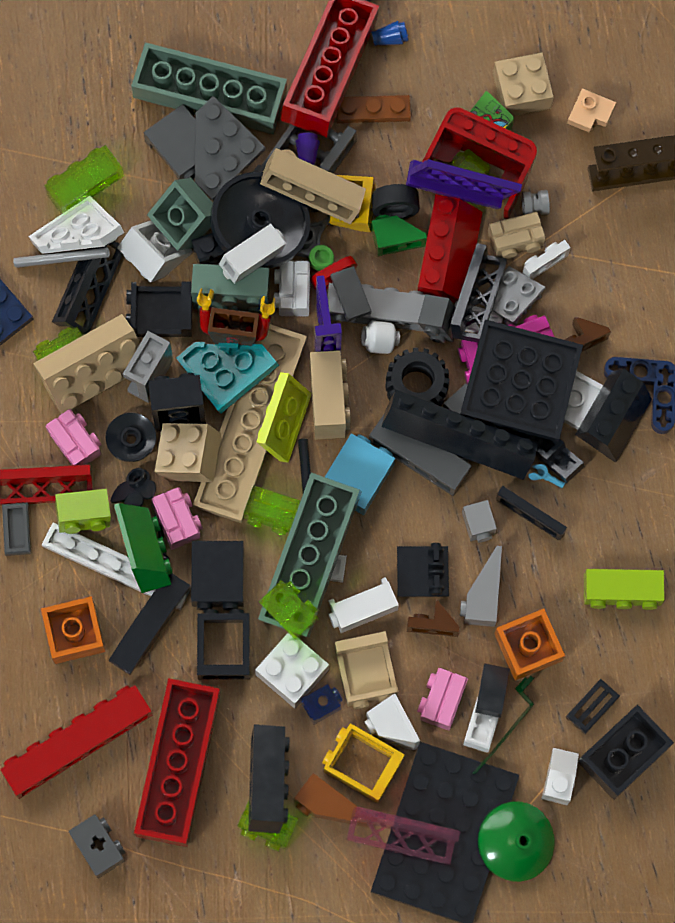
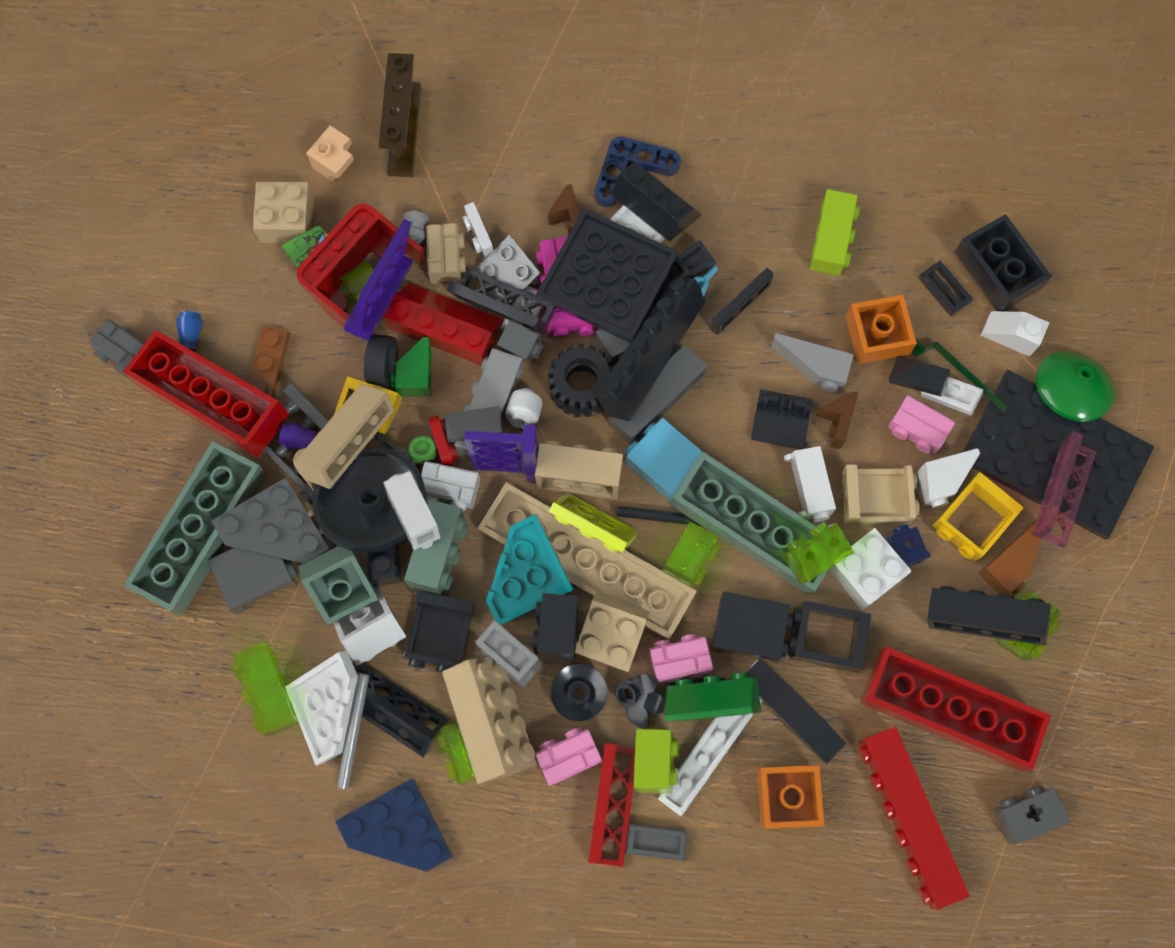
camera: 75 degrees left, 0 degrees up
(234, 325) = (483, 551): torso -> none
(479, 521) = (741, 352): light grey brick -> none

